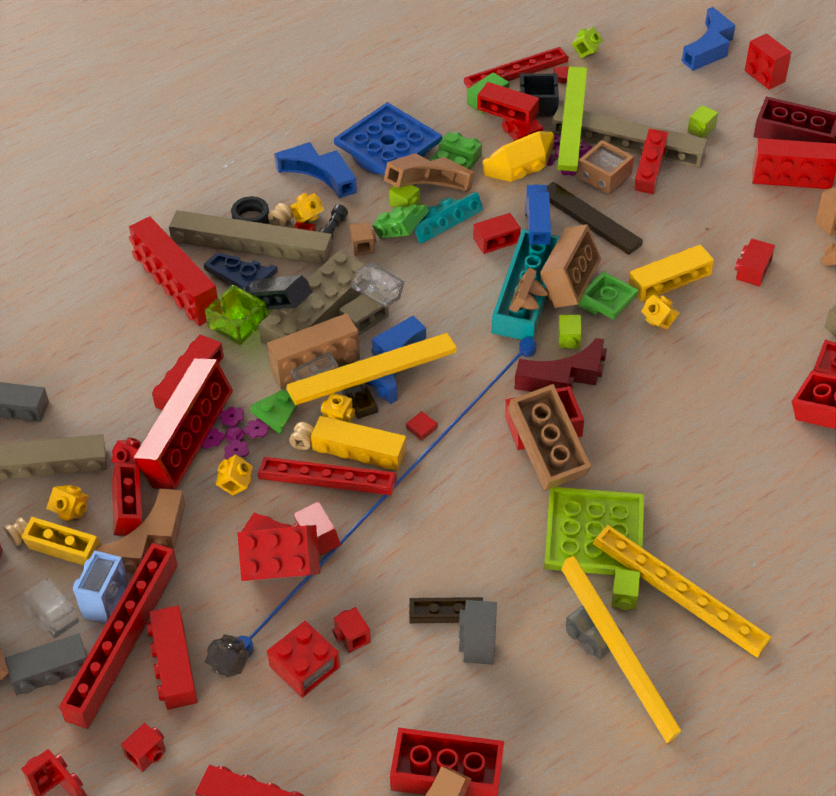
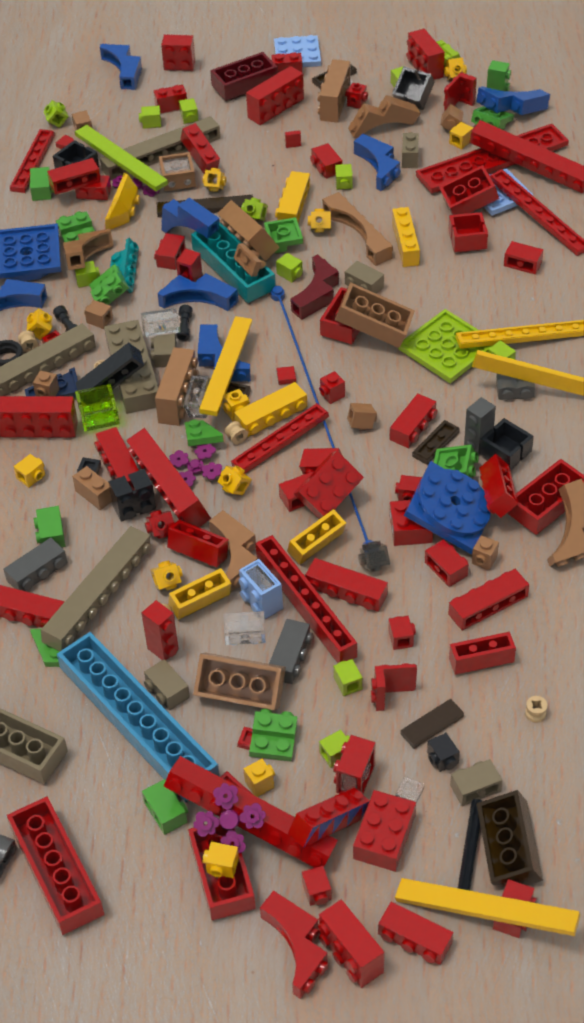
camera: 50 degrees left, 0 degrees up
(48, 734) = (348, 677): none -> lime brick
(65, 380) = (49, 525): none -> bright green brick
(122, 321) = (29, 470): none -> yellow brick
(136, 378) = (92, 487): none -> medium nougat brick
(142, 415) = (129, 502): none -> black piece
(162, 359) = (93, 464): none -> black plate
(211, 589) = (316, 537): none -> yellow brick
(224, 261) = (46, 384): none -> medium nougat brick
(273, 728) = (446, 563): none -> red brick
(314, 755) = (485, 552): none -> medium nougat brick
(338, 709) = (433, 508): none -> blue piece
(409, 705) = (498, 486): none -> red brick
(414, 521) = (361, 416): none -> medium nougat brick
(422, 647) = (458, 458): none -> bright green plate
(428, 296) = (185, 313): none -> black piece
(433, 471) = (332, 387): none -> red brick
(453, 569) = (413, 420): none -> red brick
(470, 289) = (204, 290): none -> blue arch
(479, 260) = (189, 265): none -> red brick
(489, 681) = (507, 442): none -> black piece
(596, 65) = (81, 119): none -> medium nougat brick
(616, 400) = (364, 277): none -> dark tan brick
(618, 254) = (255, 208): none -> lime brick
(625, 199) = (210, 175): none -> yellow brick
(662, 103) = (150, 116): none -> lime brick
(674, 377) = (377, 247): none -> medium nougat arch
(697, 94) = (169, 98): none -> red brick
(715, 393) = (405, 237): none -> yellow brick
(747, 289) = (343, 176): none -> lime brick
(755, 217) = (293, 139): none -> red tile
(778, 440) = (468, 232): none -> red piece
(800, 514) = (523, 257): none -> red brick
(813, 298) = (380, 157): none -> blue arch

